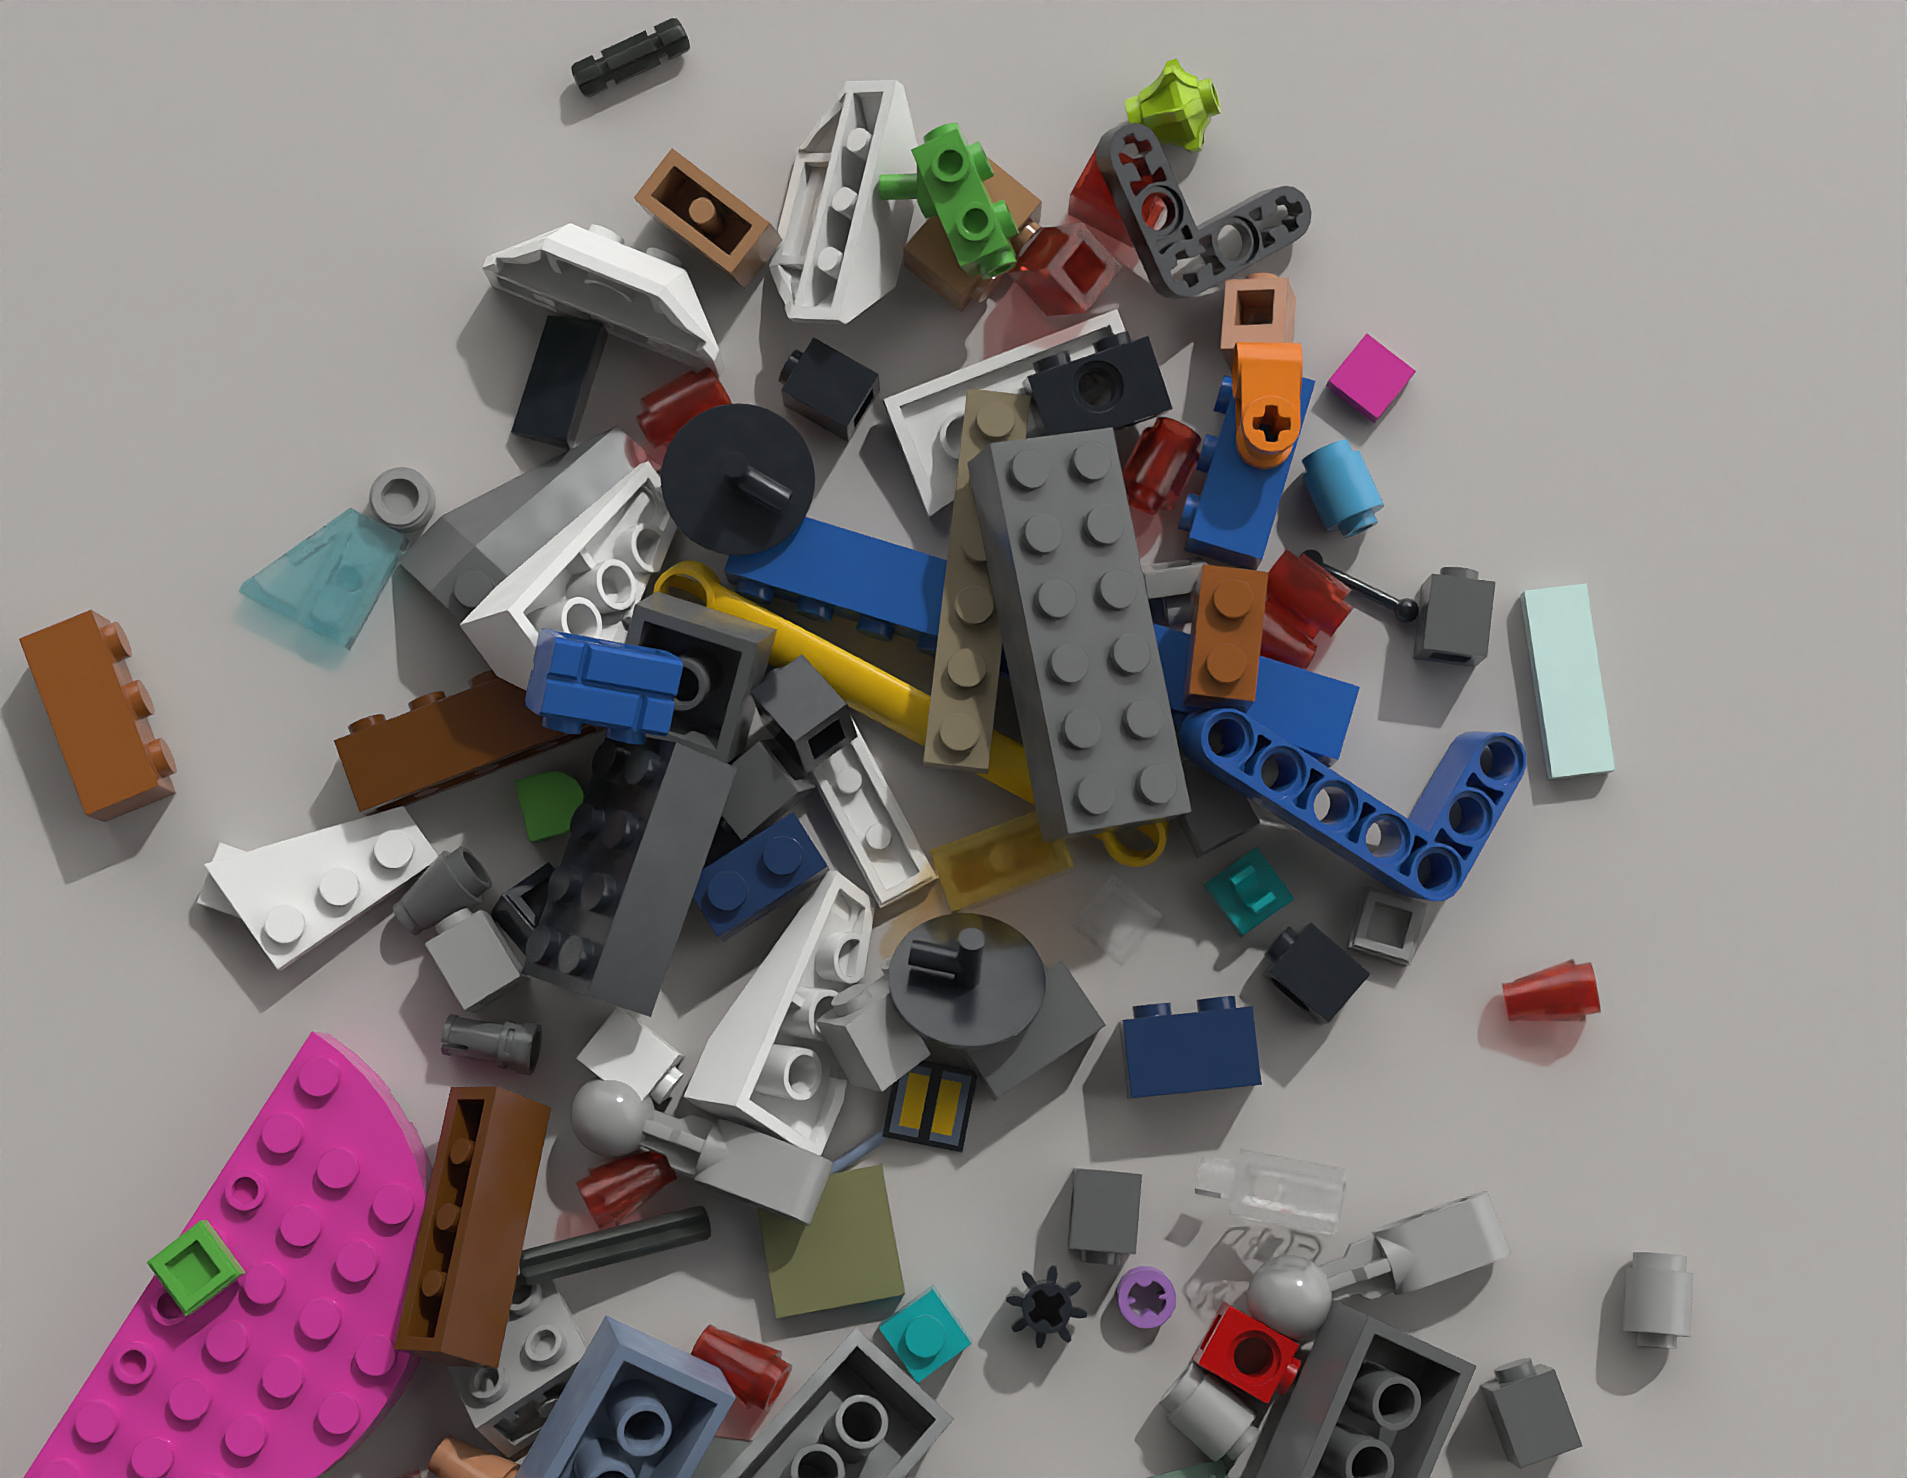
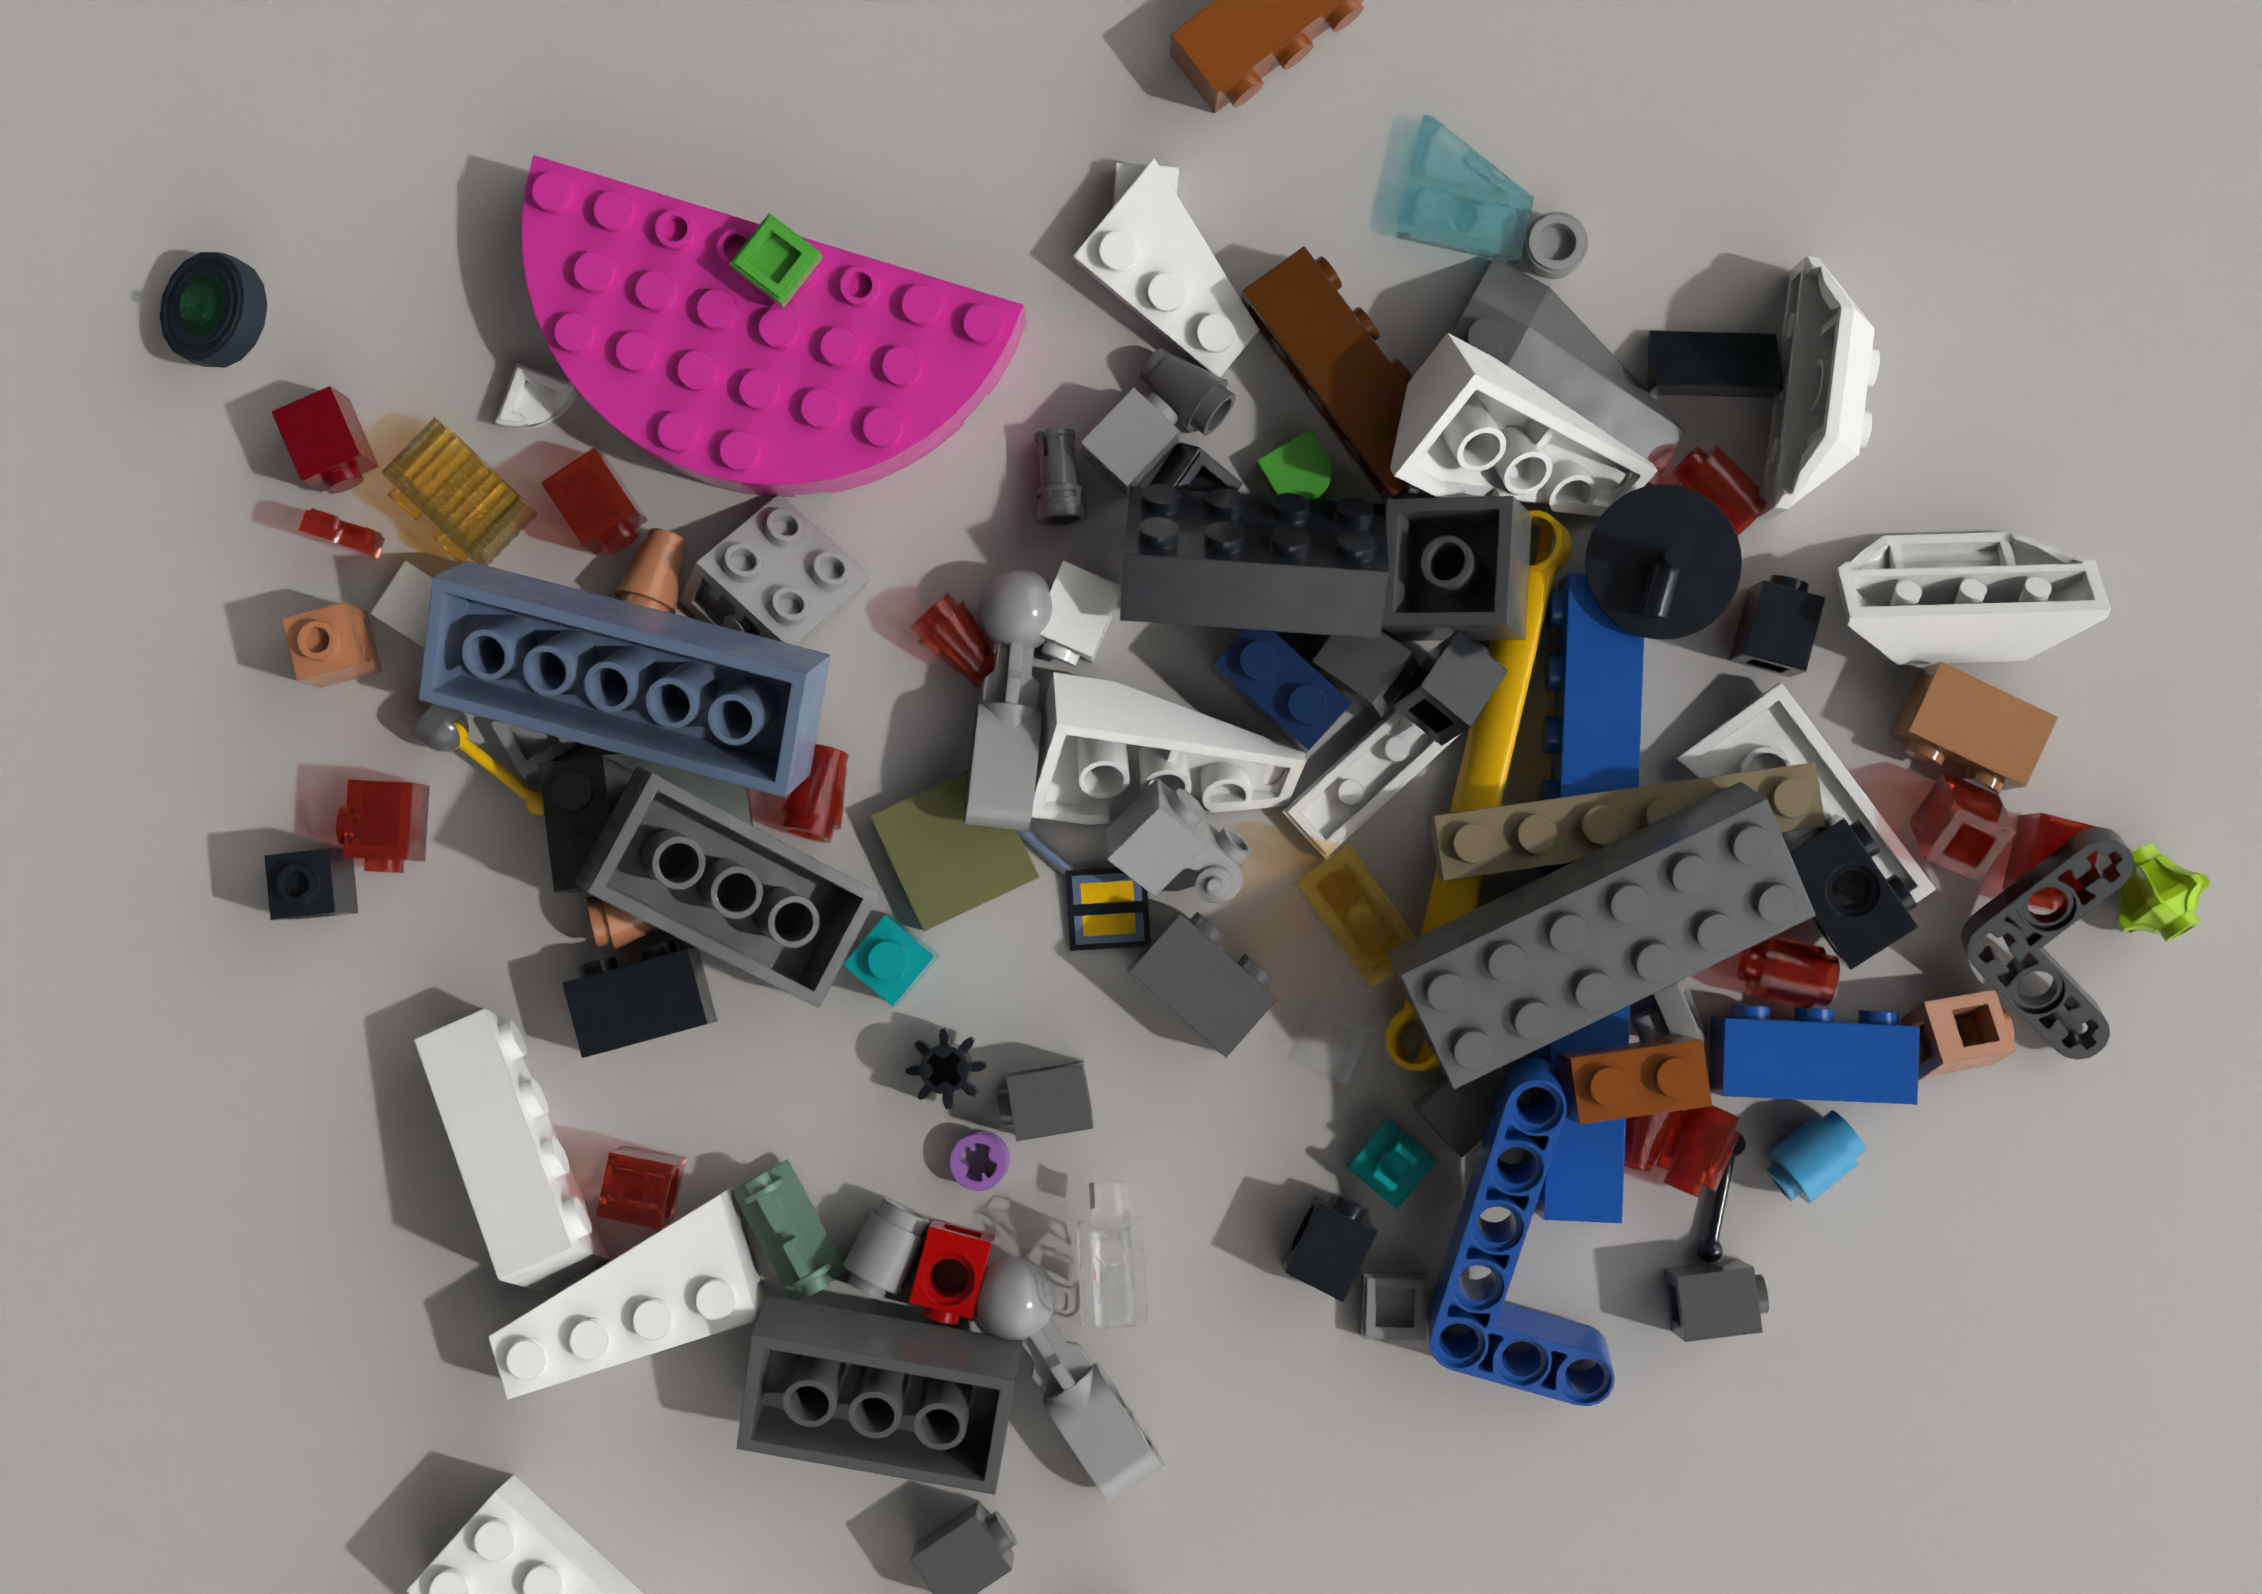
camera: 75 degrees right, 5 degrees up
(473, 1227) = (880, 508): reddish brown brick -> none
(602, 685) = (1425, 486): blue brick -> none
(614, 1245) = (898, 645): pearl dark grey axle -> none
(630, 57) = (2059, 342): pearl dark grey axle -> none
(708, 218) = (1917, 462): medium nougat brick -> none
(953, 186) = (2014, 695): bright green brick -> none
(966, 981) = (1233, 913): black shield -> none
(1189, 1049) = (1223, 1143): dark blue brick -> none
(1266, 392) = (1892, 1061): orange piece -> none
(1370, 378) = (1934, 1158): dark pink tile -> none
(1553, 994) = (1370, 1485): clear red cone -> none
(1567, 681) = (1681, 1426): light aqua tile -> none

